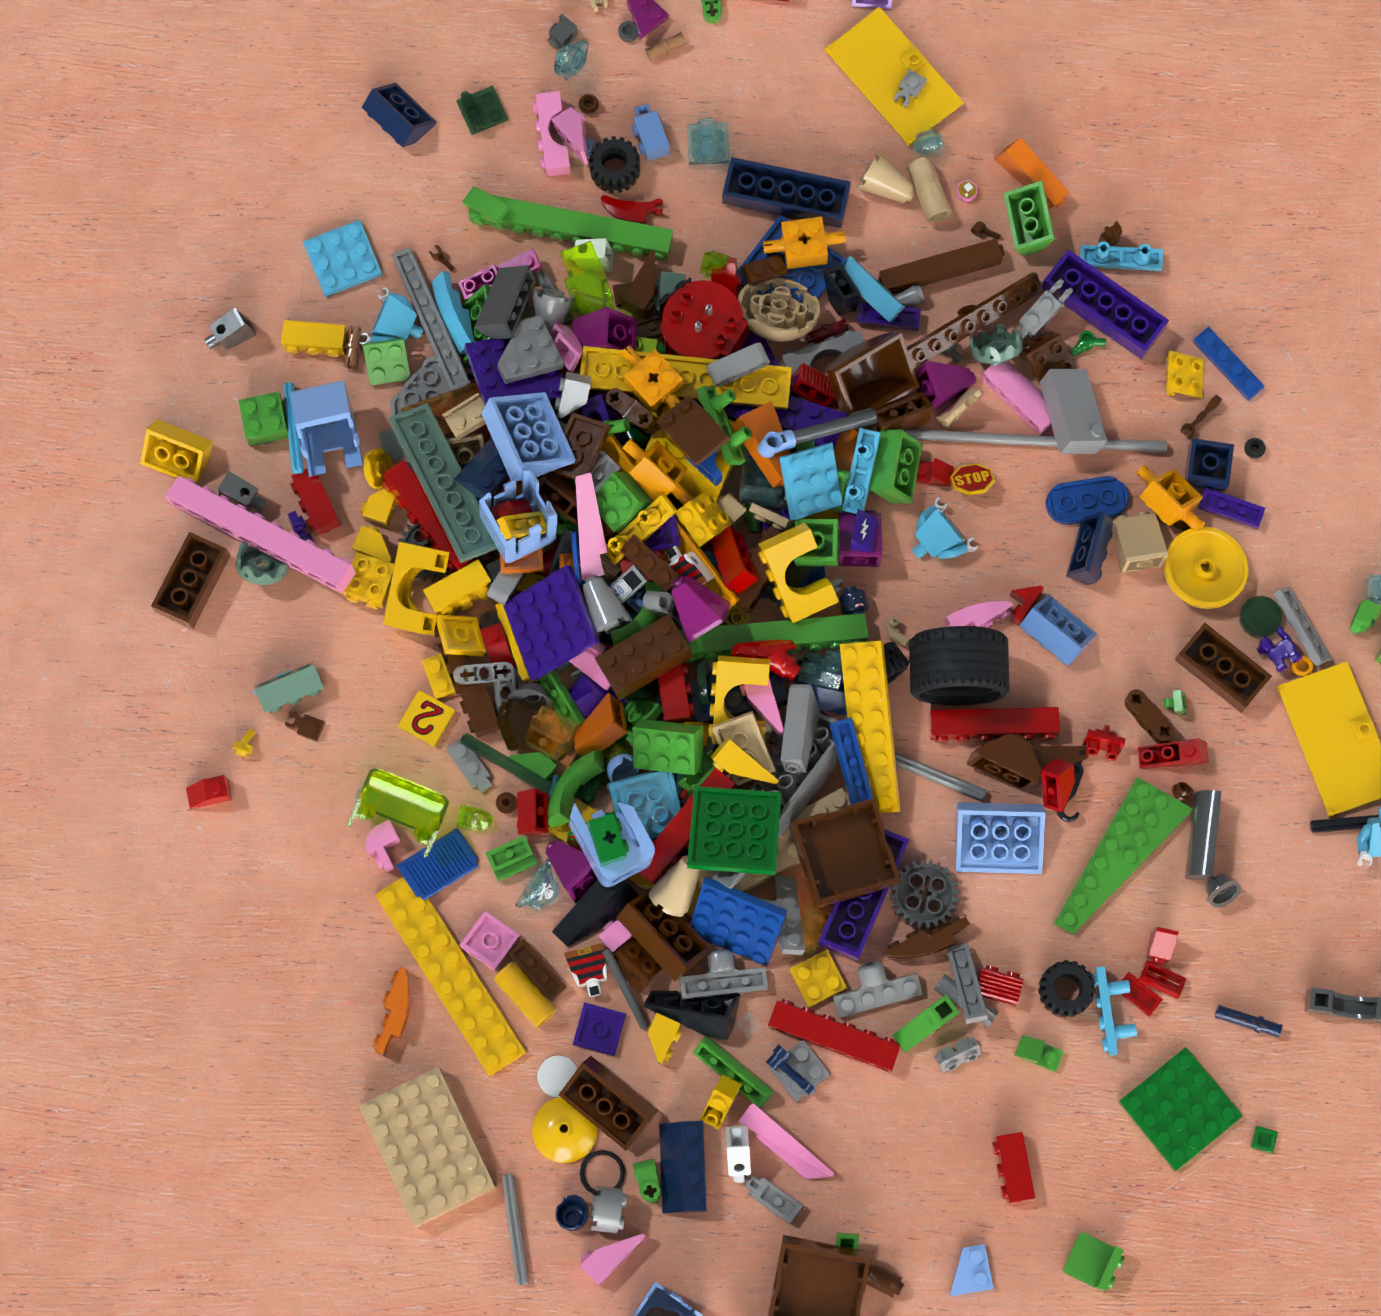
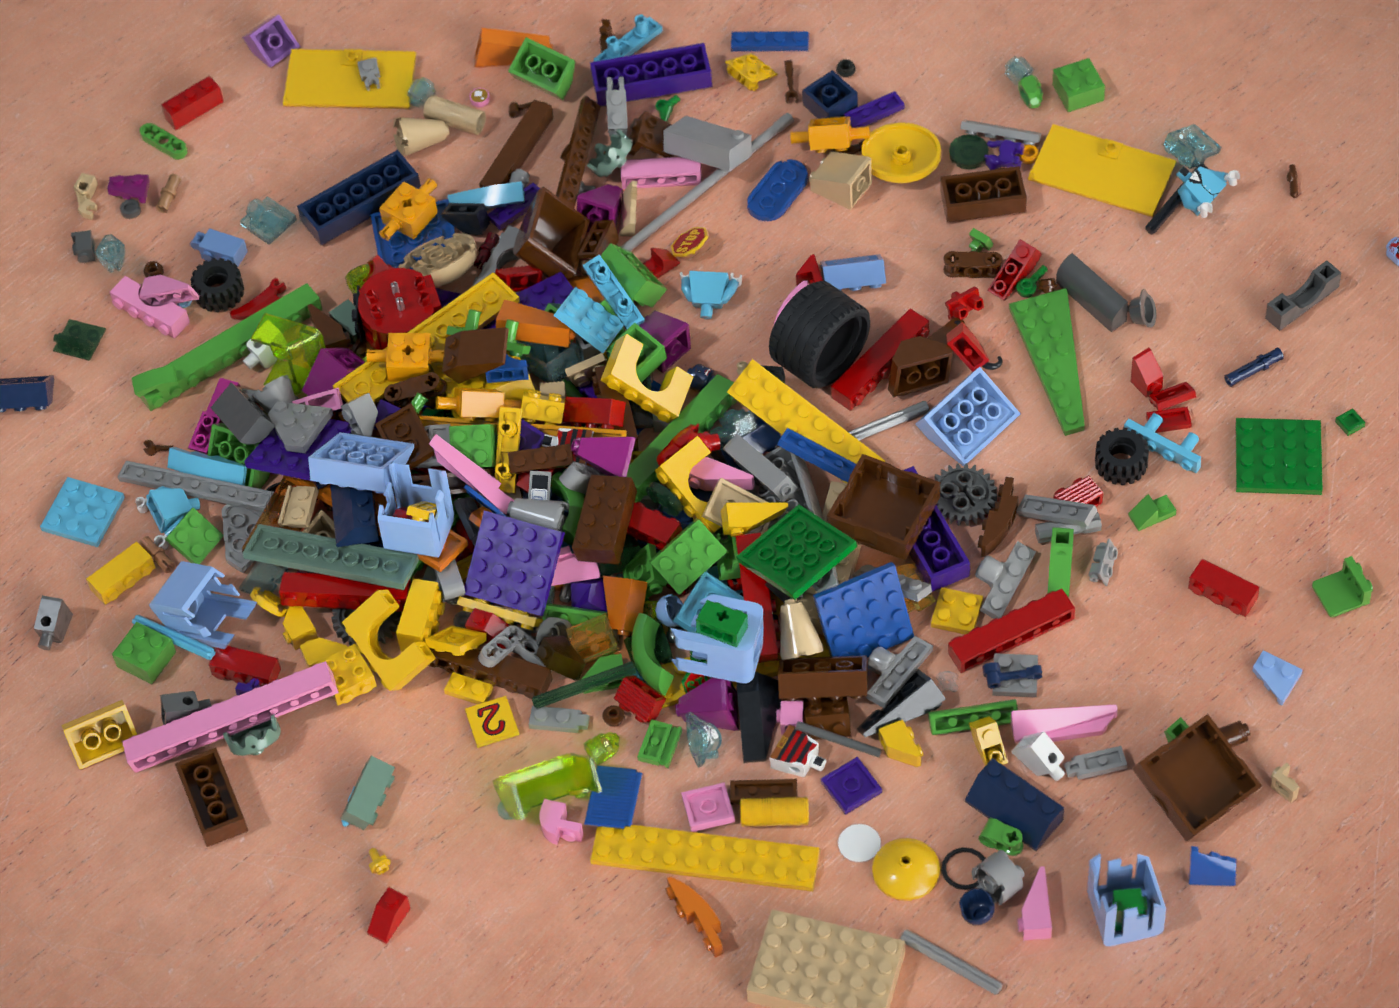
camera: 45 degrees left, 20 degrees down
(307, 727) = (411, 808): reddish brown plate -> none
(608, 1103) = (915, 817): reddish brown slope -> none
(738, 364) = (455, 298): light grey beam -> none
(764, 270) = (400, 248): reddish brown plate -> none
(789, 439) = (542, 307): dark grey piece -> none
(864, 532) = (658, 324): dark purple slope -> none
(1090, 548) = (814, 208): dark blue slope -> none
(1167, 776) = (1027, 286): none -> green plate

